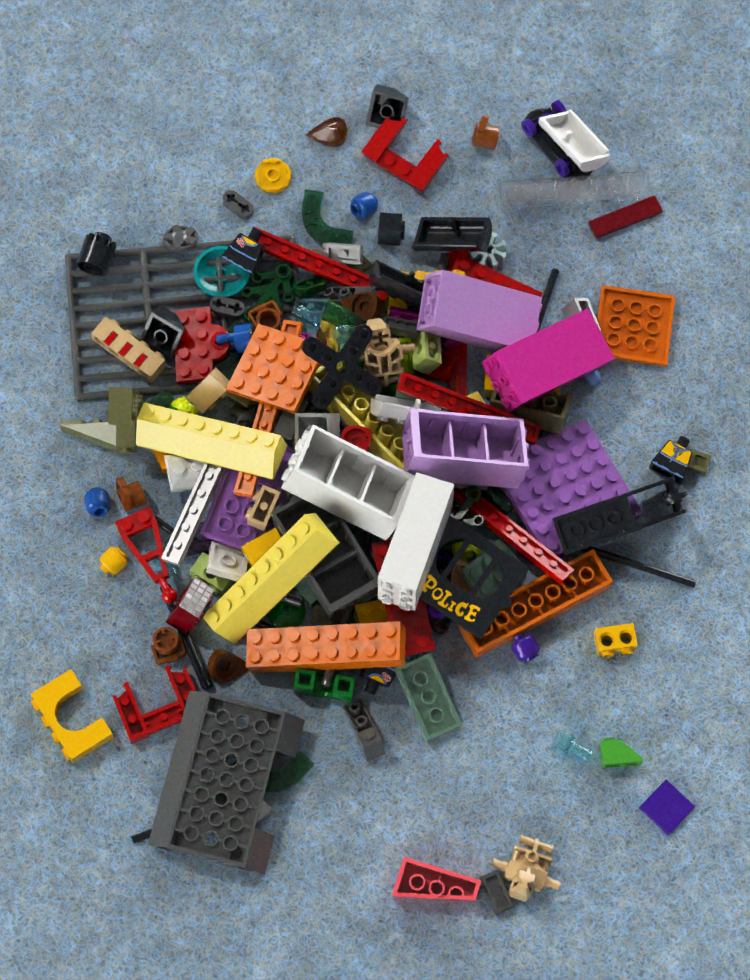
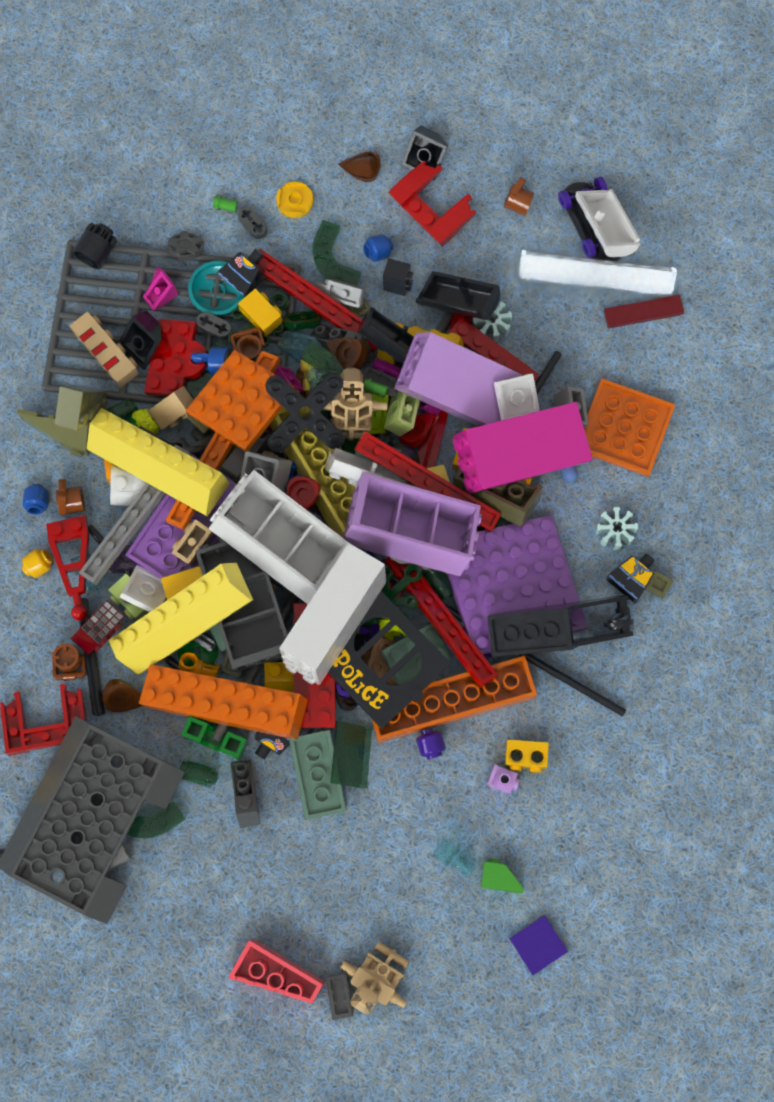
camera: 20 degrees right, 5 degrees up
(167, 282) = (160, 290): none -> dark pink slope
(207, 192) = (225, 204): none -> bright green pin
(270, 285) = (260, 312): none -> yellow brick
(292, 621) = (199, 666): none -> light orange connector
(317, 720) = (199, 773): none -> clear green head
(399, 333) = (375, 388): none -> bright green pin
(454, 673) = (351, 755): none -> clear green piece
(531, 314) = (516, 396): none -> white plate
(595, 671) = (495, 780): none -> lavender brick
(654, 423) = (622, 533): none -> light aqua gear

